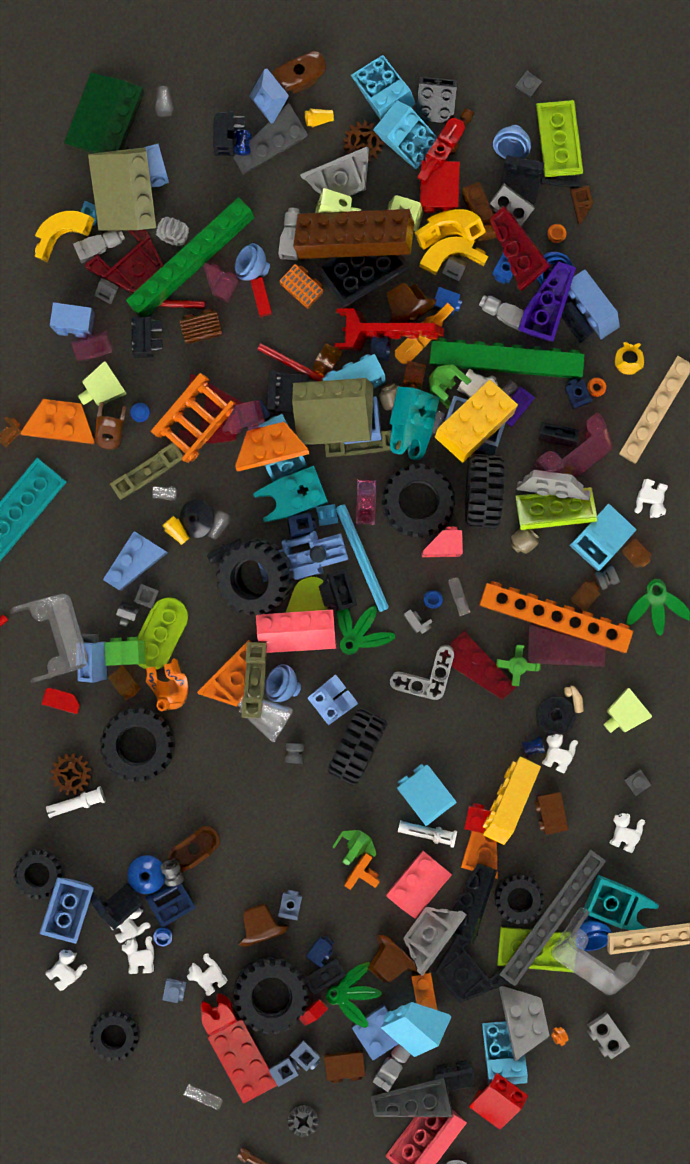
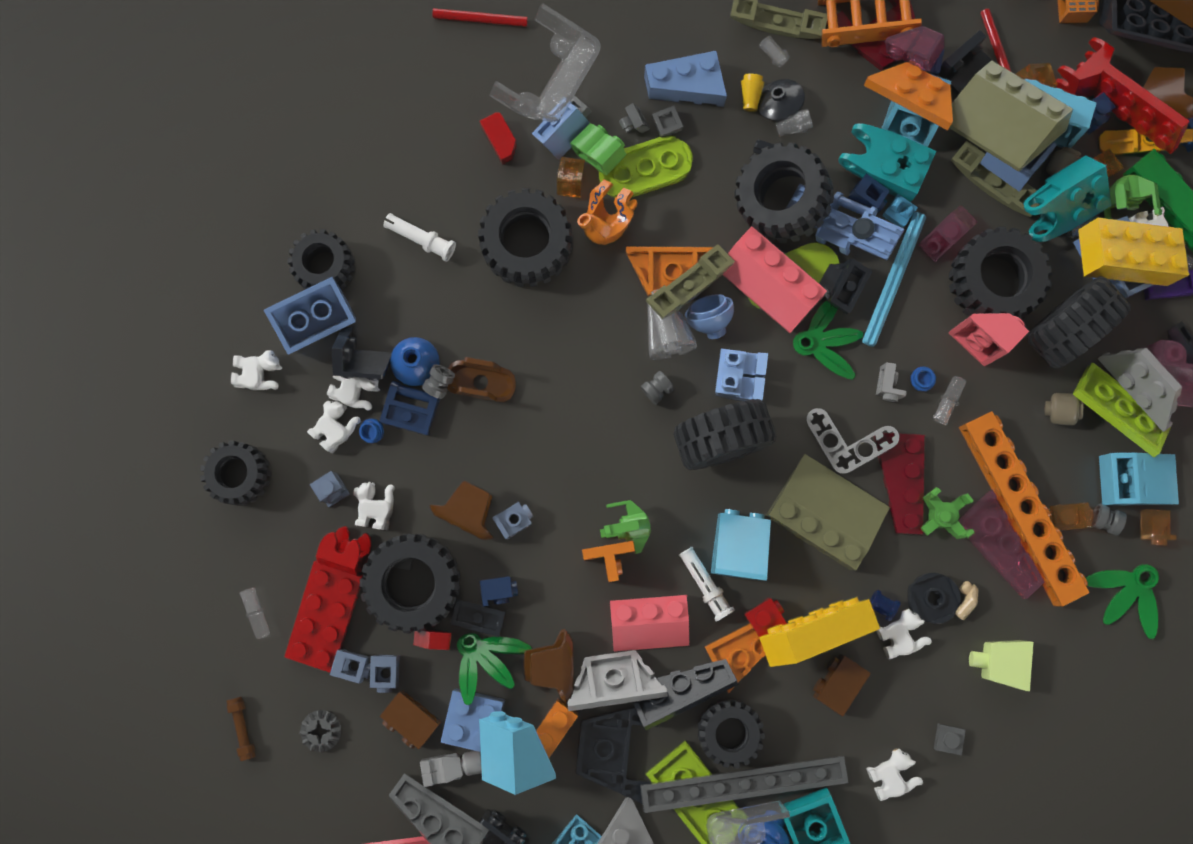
camera: 50 degrees right, 5 degrees down
(71, 765) = (434, 212): reddish brown gear -> none
(454, 726) = (828, 513): none -> olive slope

